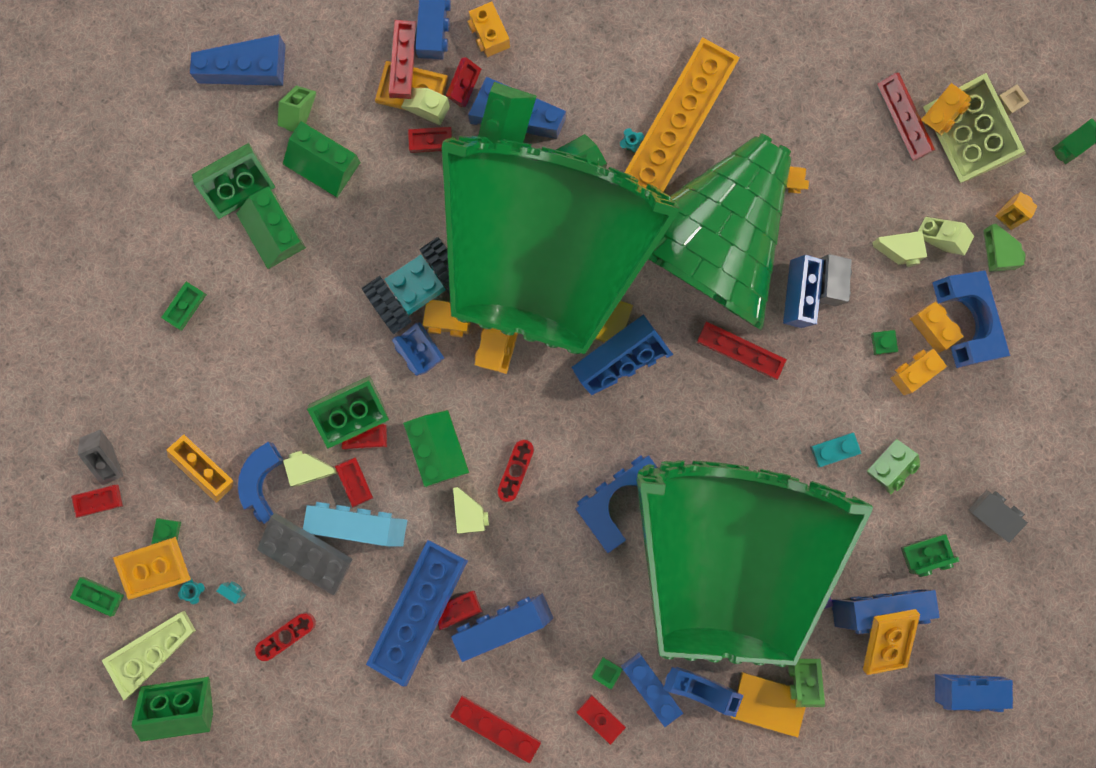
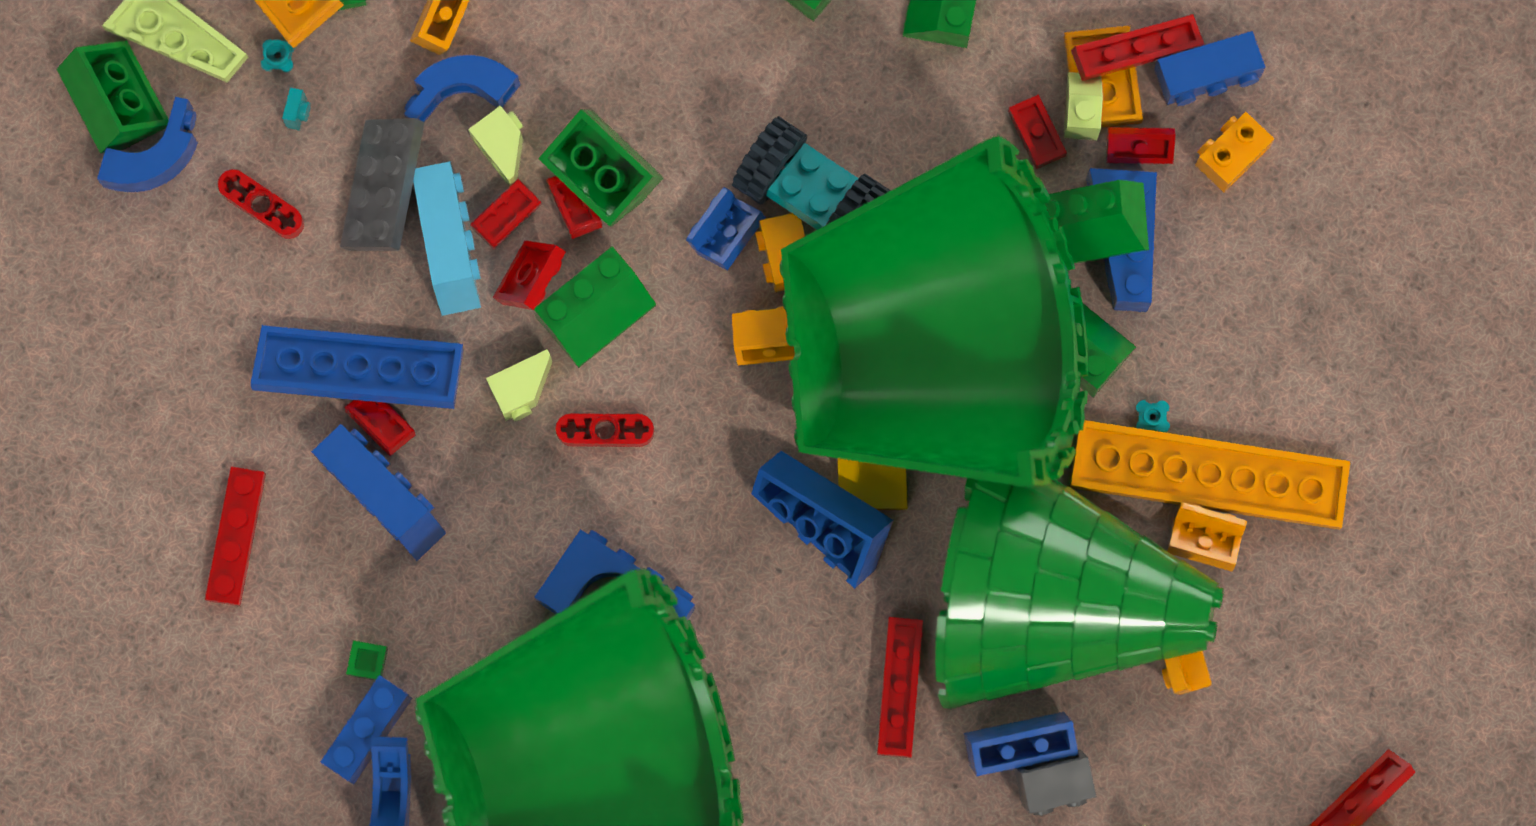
camera: 70 degrees right, 5 degrees down
(232, 696) = (158, 164): none -> blue arch
(400, 481) = (529, 275): none -> red plate
(601, 719) = (299, 677): red plate -> none
(716, 137) = (1206, 536): none -> light orange bracket

